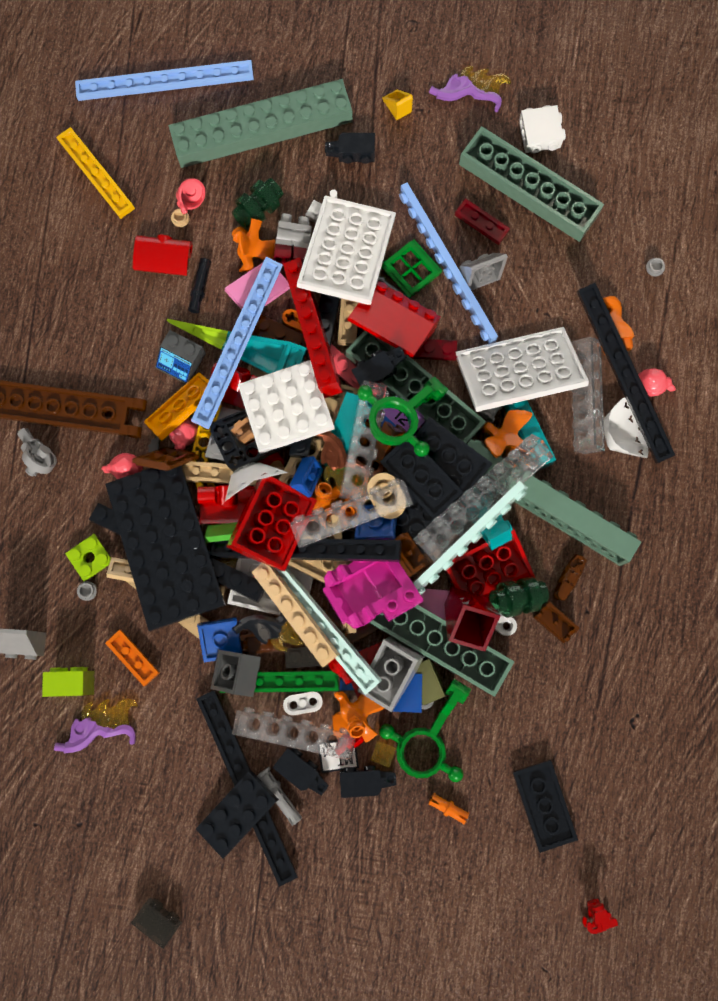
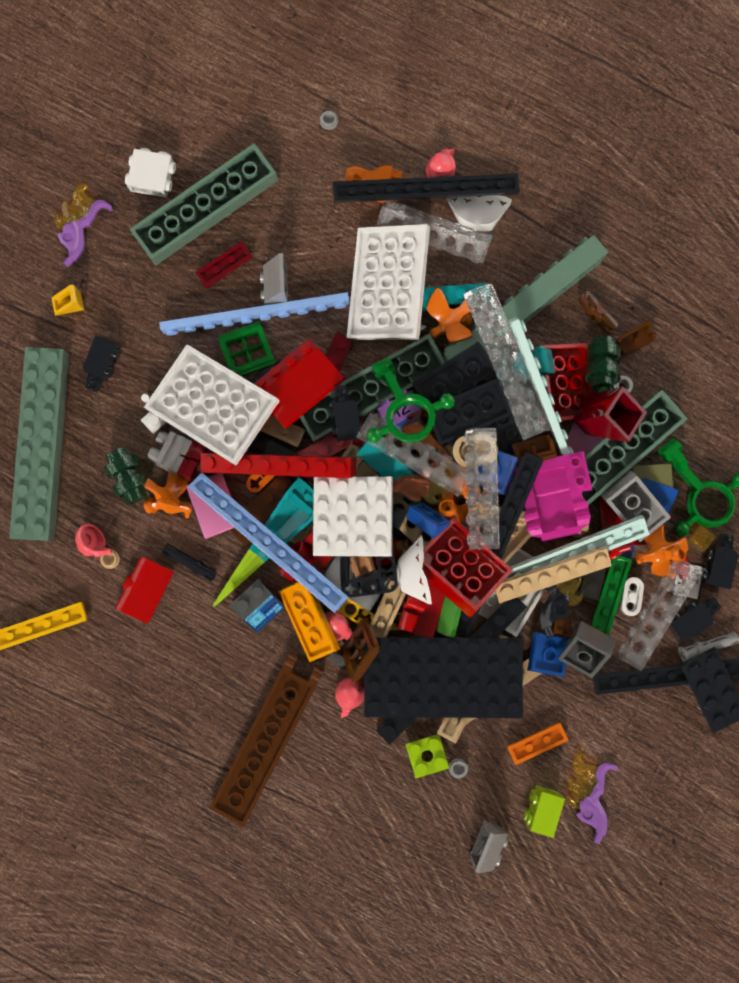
camera: 75 degrees left, 5 degrees up
(43, 459) = (309, 771): light grey pin -> none

